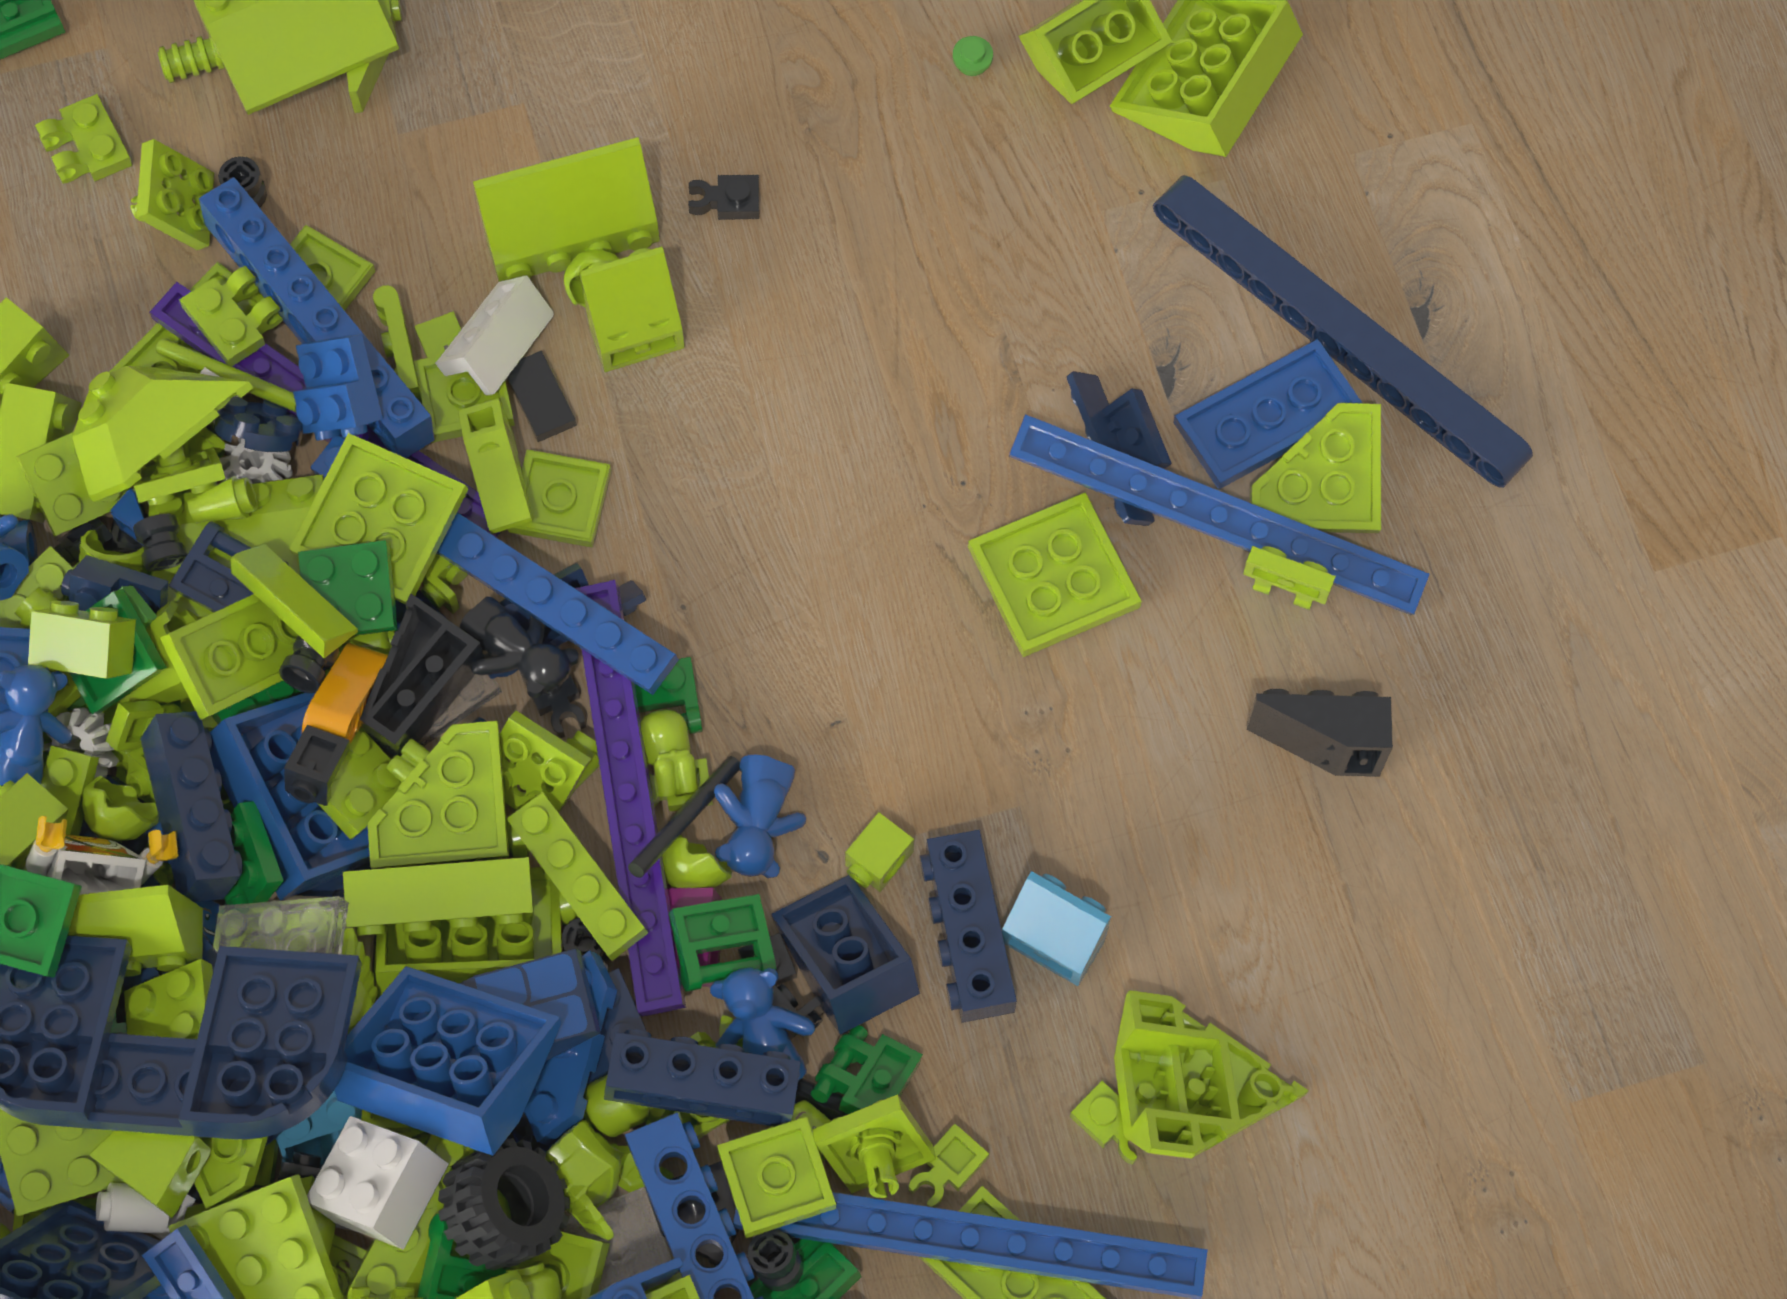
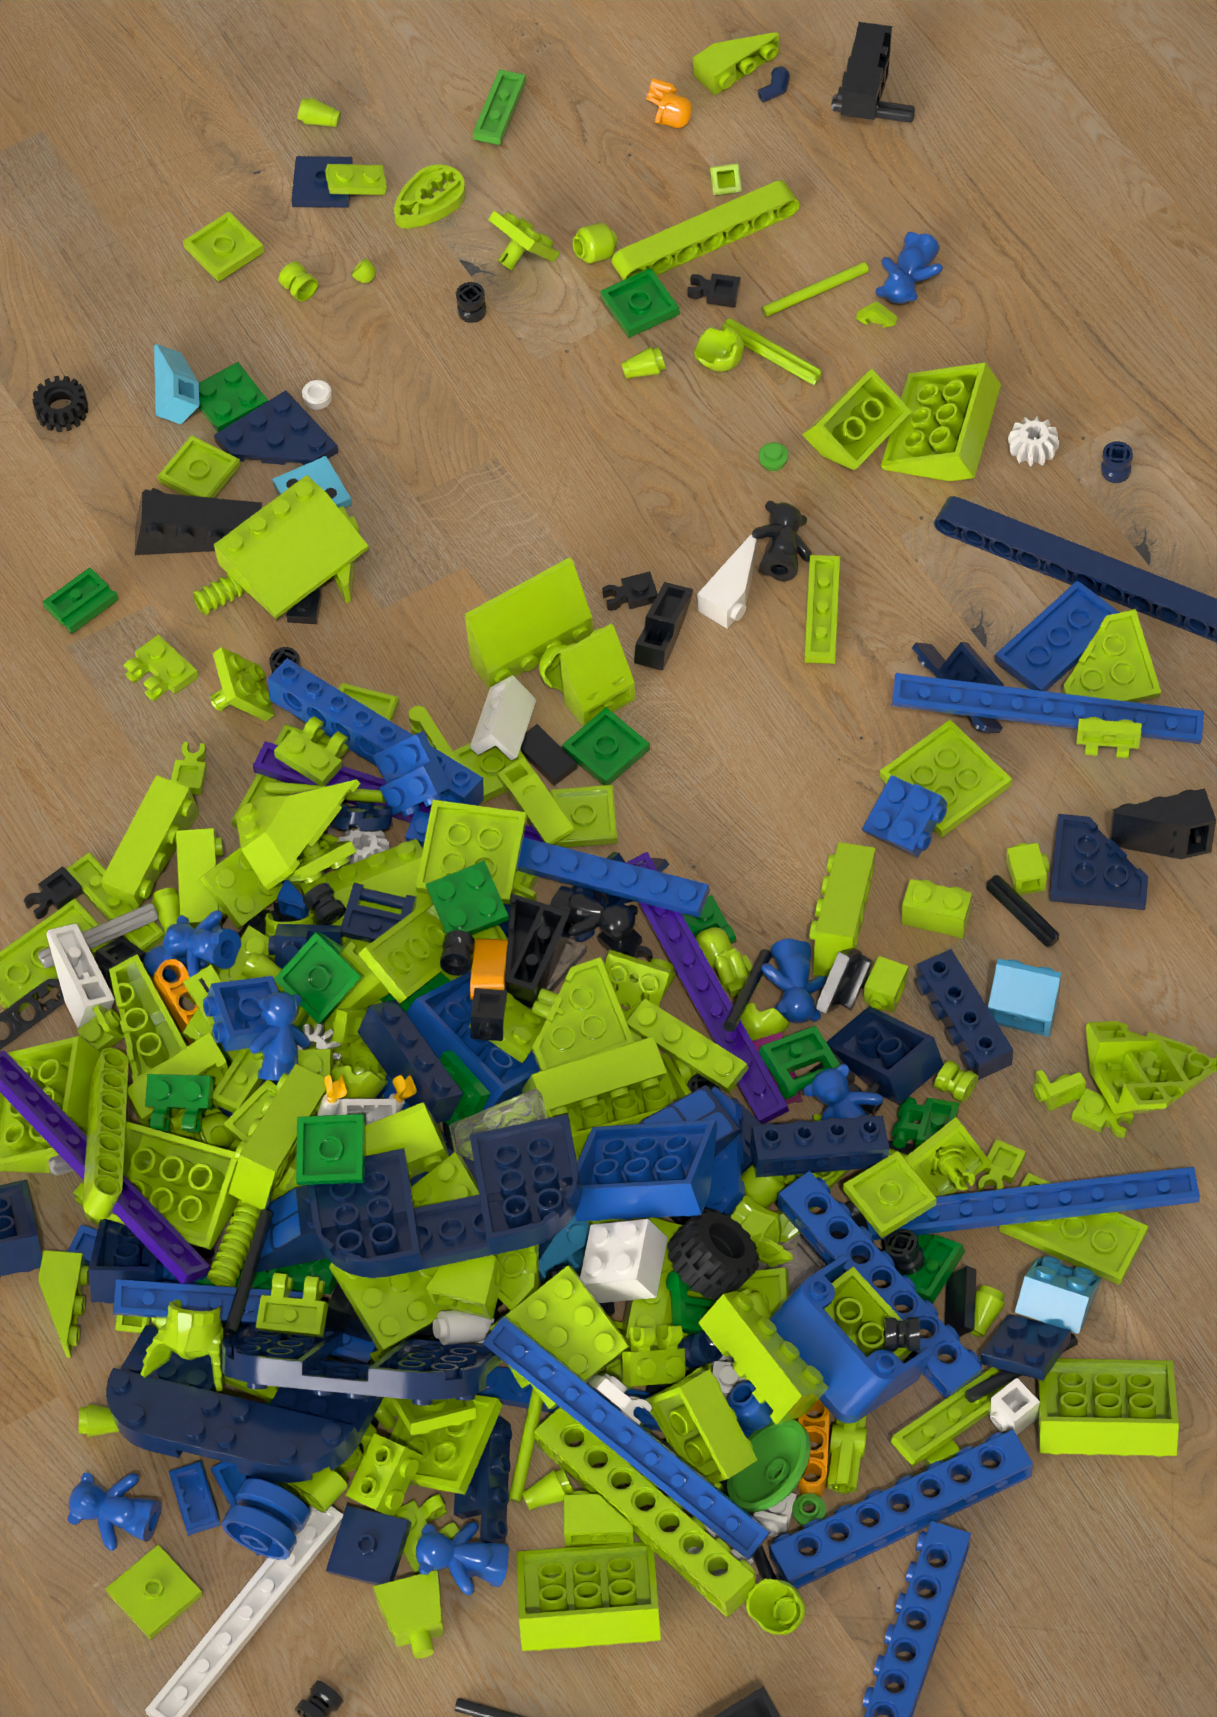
camera: 10 degrees left, 10 degrees down
(72, 298) = (191, 770): none -> lime plate
(82, 641) = (304, 970): lime brick -> none
(225, 501) = (359, 867): lime cone -> none
(292, 599) = (434, 913): lime slope -> none
(300, 109) = (307, 609): none -> black bracket
(437, 334) = (459, 732): lime tile -> none
(620, 407) = (606, 747): none -> green plate
(750, 256) = (662, 626): none -> black slope
(822, 835) = (844, 981): none -> black slope
(851, 230) = (727, 591): none -> white slope
(853, 728) = (843, 904): none -> lime wedge
(928, 1021) = (956, 1081): none -> lime wheel
(935, 198) = (781, 550): none -> black piece
(967, 289) = (822, 609): none -> lime plate
(981, 617) = (905, 816): none -> blue plate
(982, 760) = (936, 908): none -> lime brick
(1068, 1076) = (1060, 1092): none -> lime bracket
(1097, 794) = (1022, 911): none -> black axle
(1121, 735) = (1027, 868): none -> lime brick
(1211, 759) = (1093, 868): none -> dark blue plate
(1321, 125) = (1033, 441): none -> white gear
(1423, 183) = (1116, 462): none -> dark blue wheel

